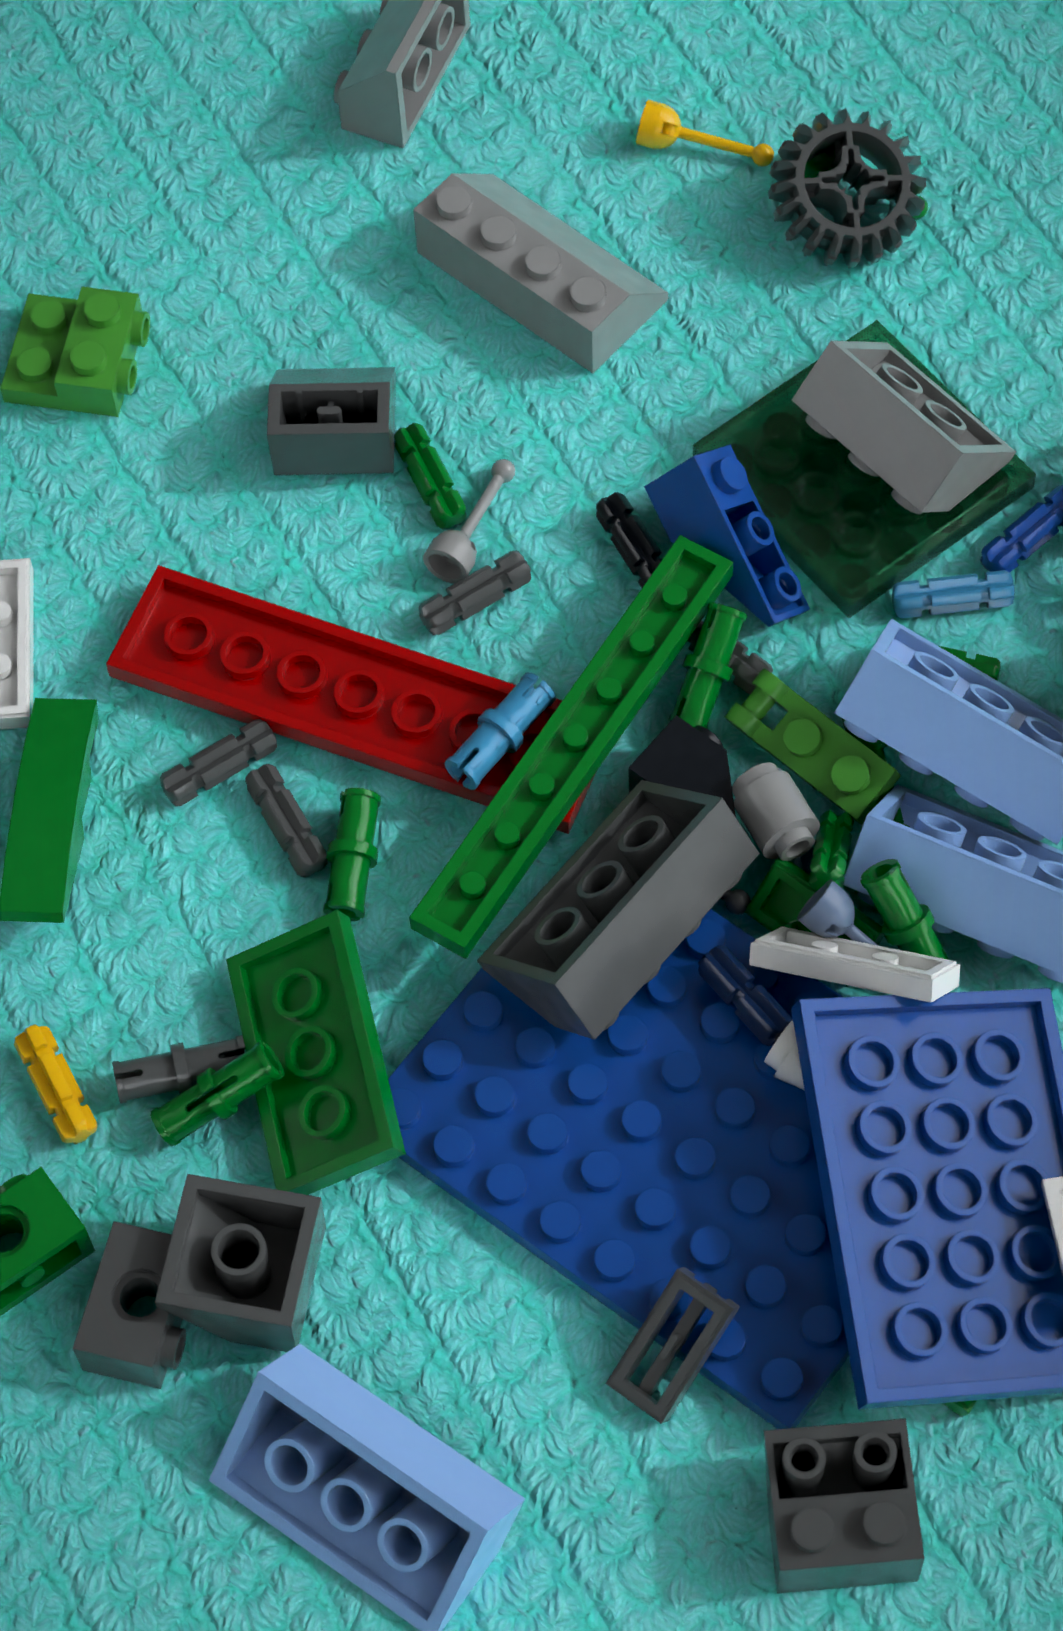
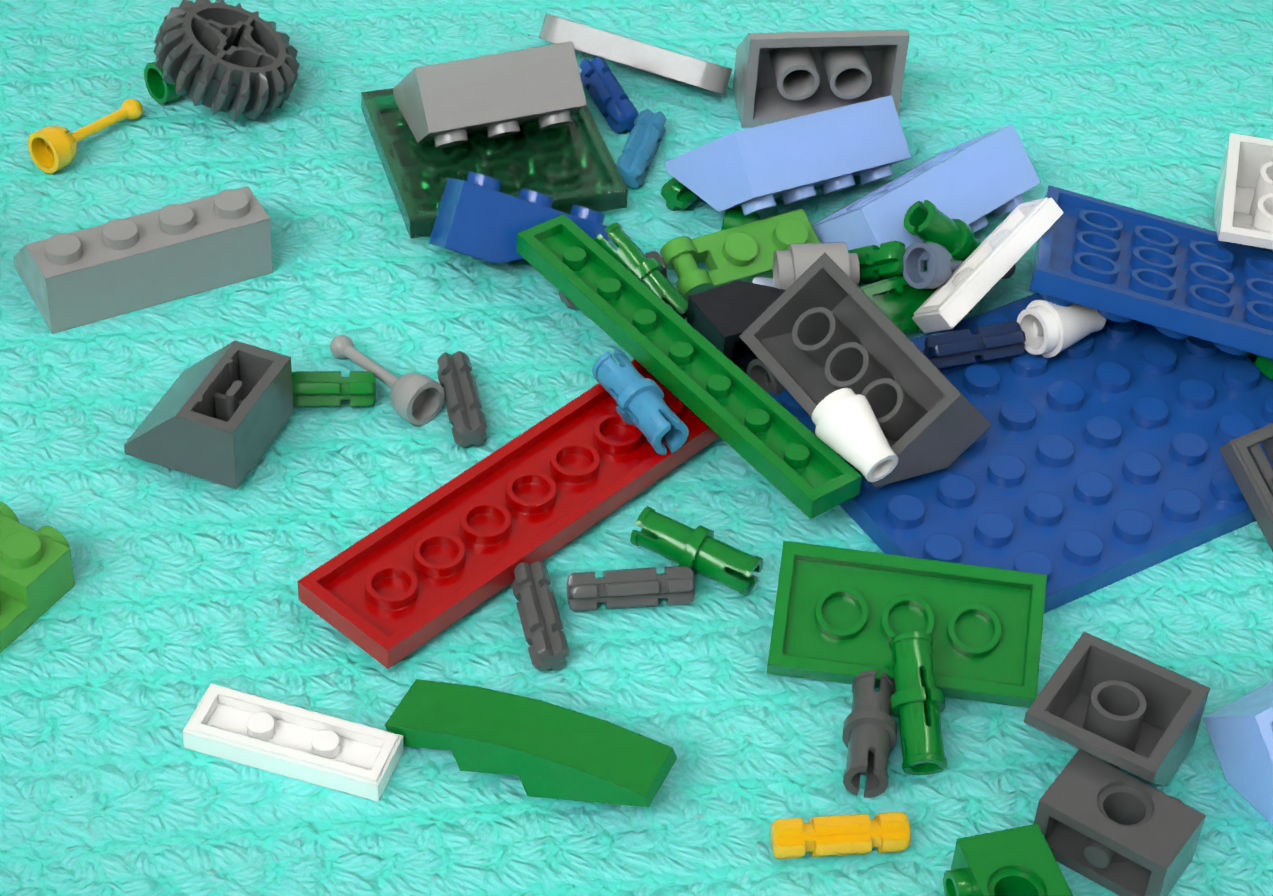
camera: 75 degrees left, 20 degrees down
(500, 918) = (852, 431): none -> white cone
(629, 536) = (478, 293): black axle -> none

